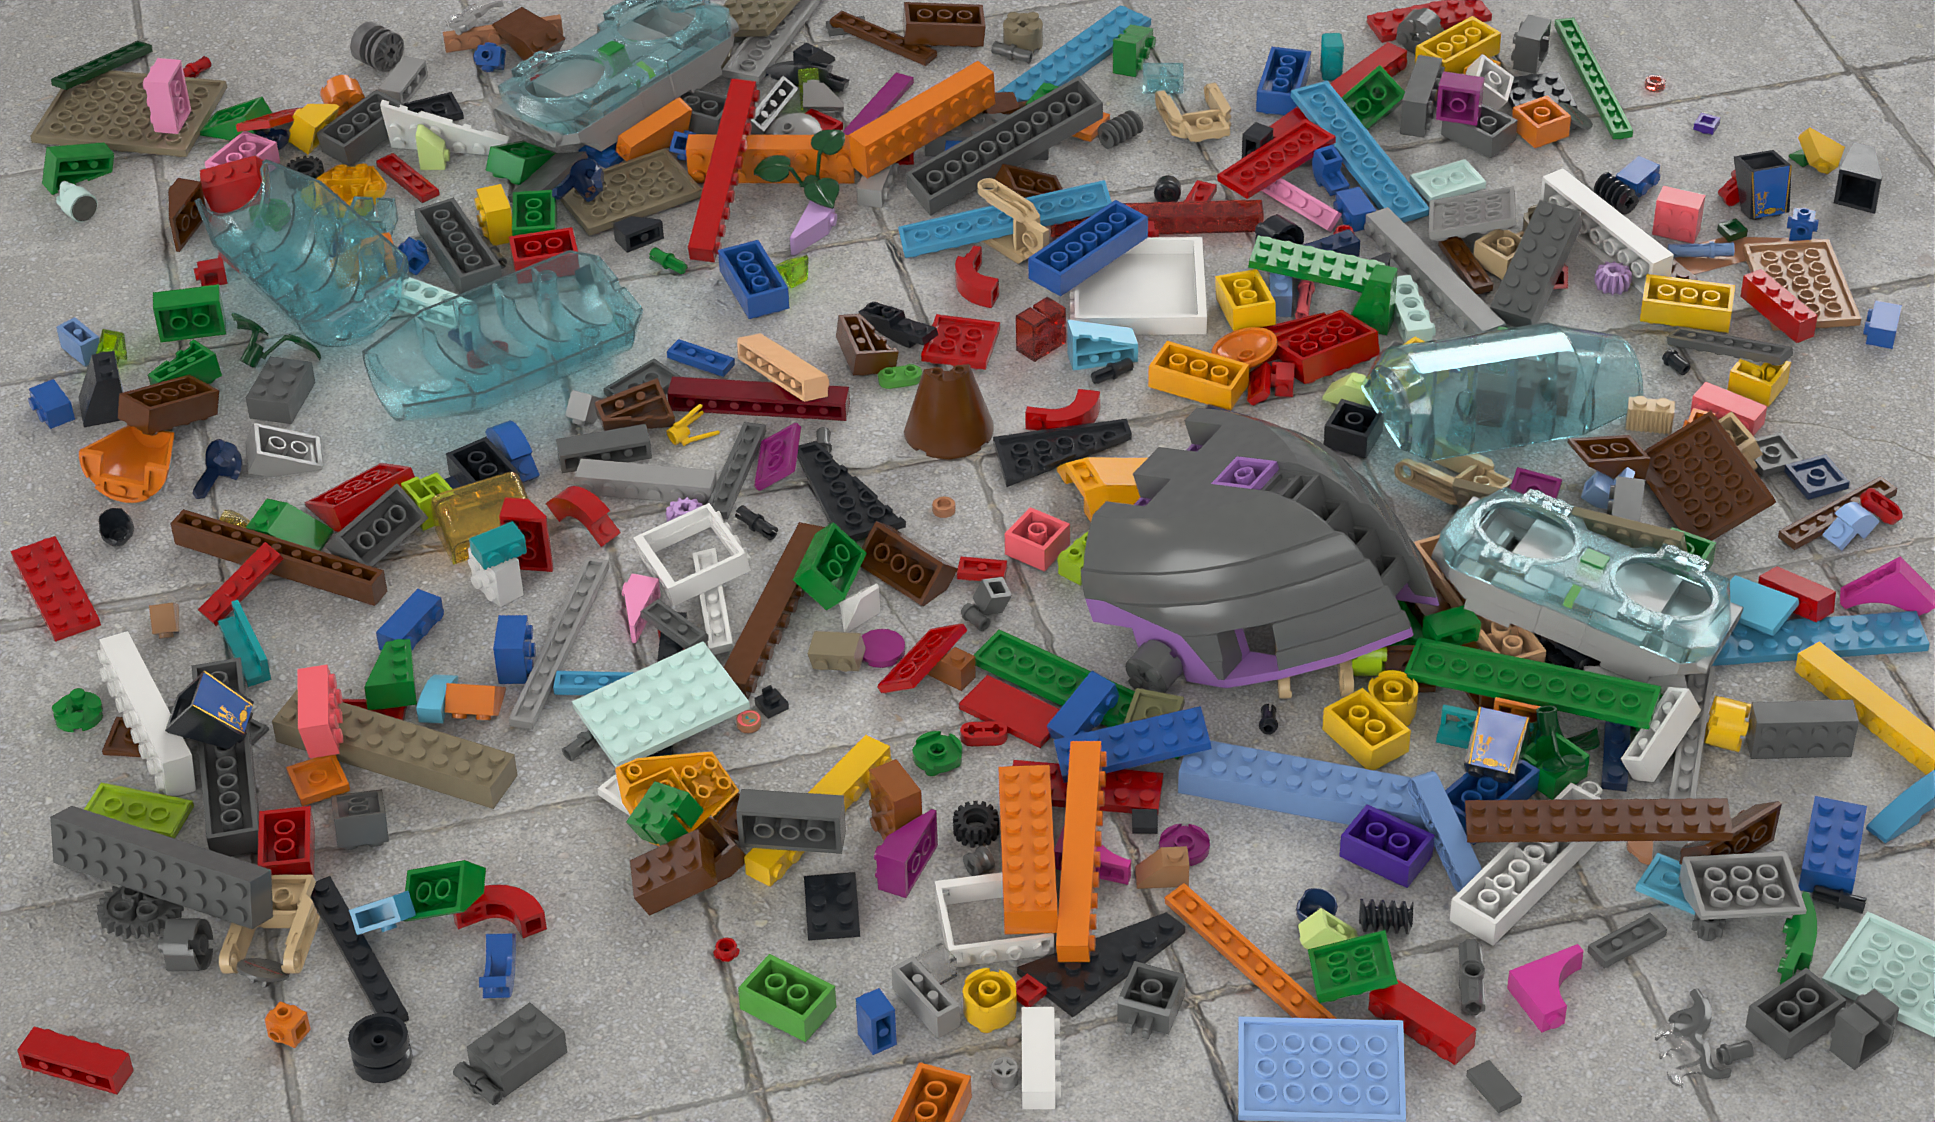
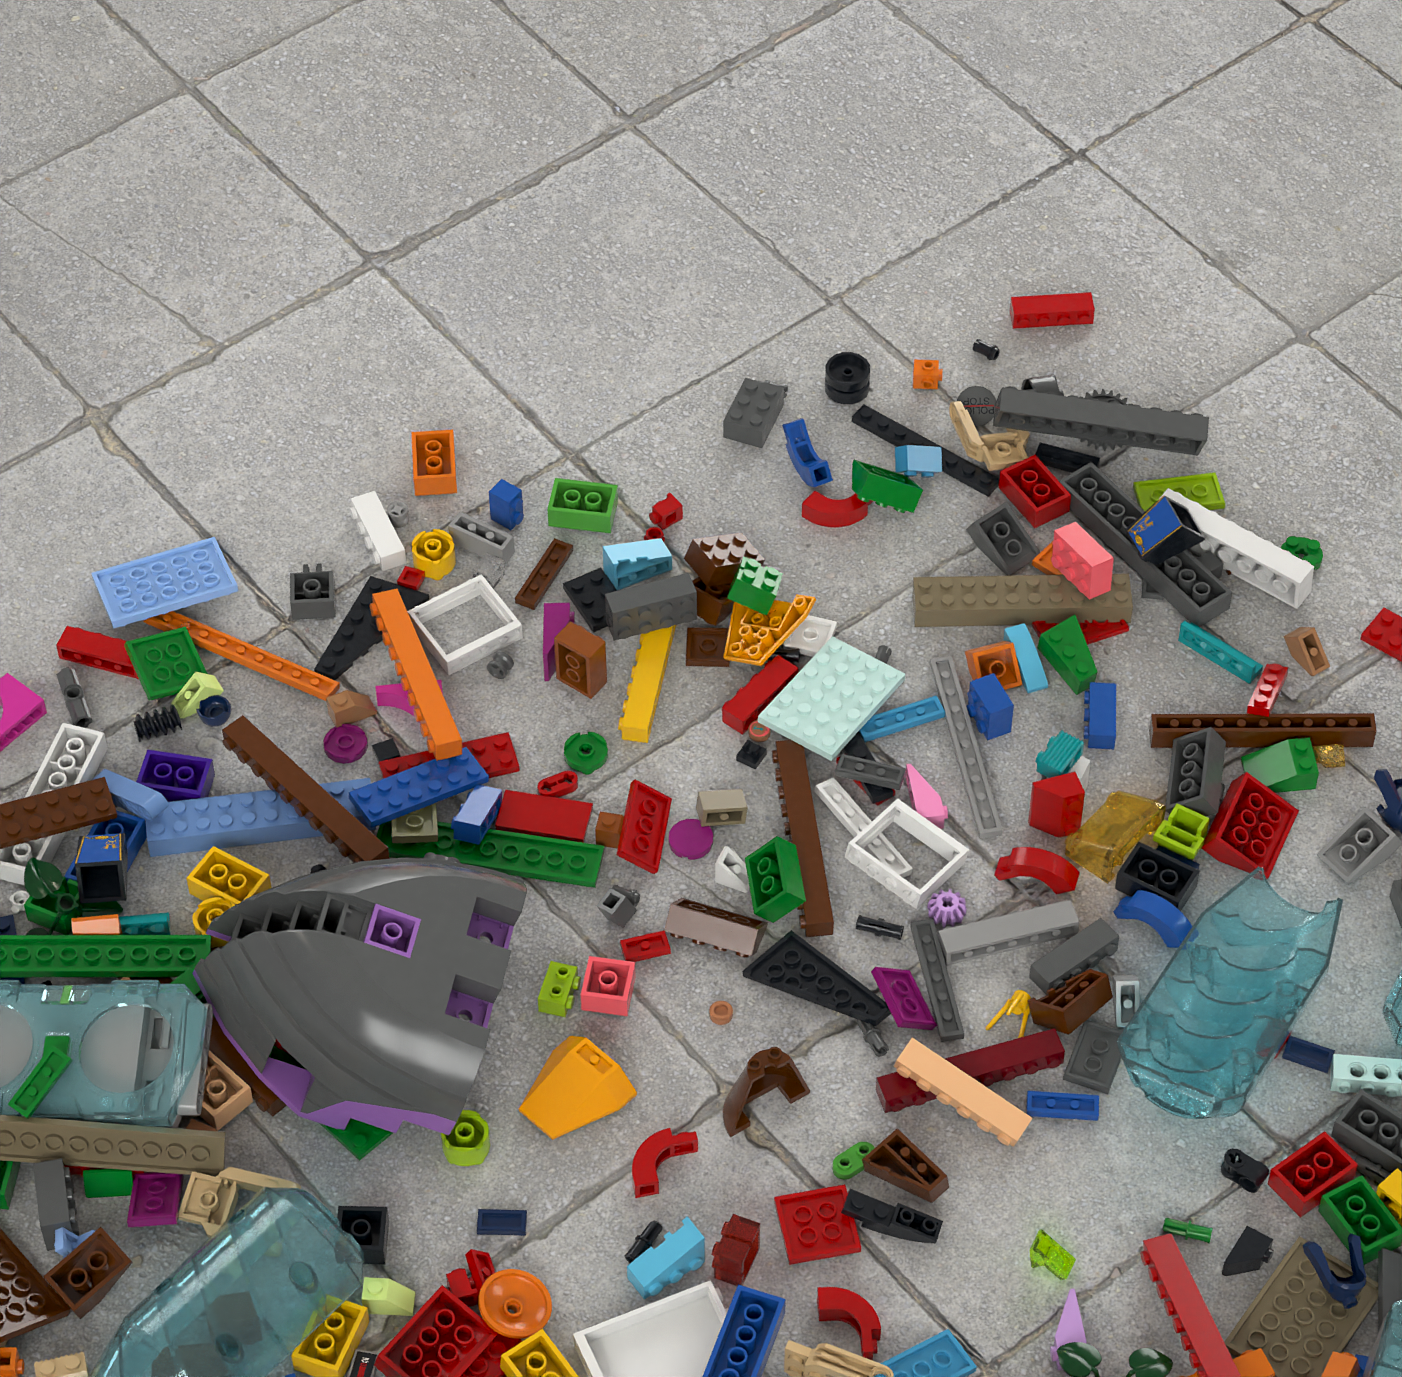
camera: 155 degrees right, 10 degrees up
(189, 1038) = (991, 352): none -> black pin
(696, 967) = (666, 512): none -> red brick
(735, 741) = (758, 694): none -> red brick
(753, 279) = (1076, 1220): blue brick -> none
(768, 916) = (635, 561): none -> medium azure wedge
(874, 947) = (544, 574): none -> reddish brown plate
(976, 834) = (520, 708): black tyre -> none
(1027, 850) = (460, 664): orange brick -> none
(1041, 451) = (664, 1103): black wing -> none
(1198, 375) = (549, 1250): light orange brick -> none
(1259, 757) = (302, 792): none -> reddish brown brick
(1494, 1086) = (34, 626): dark grey tile -> none
(1617, 535) = (40, 1082): none -> green plate

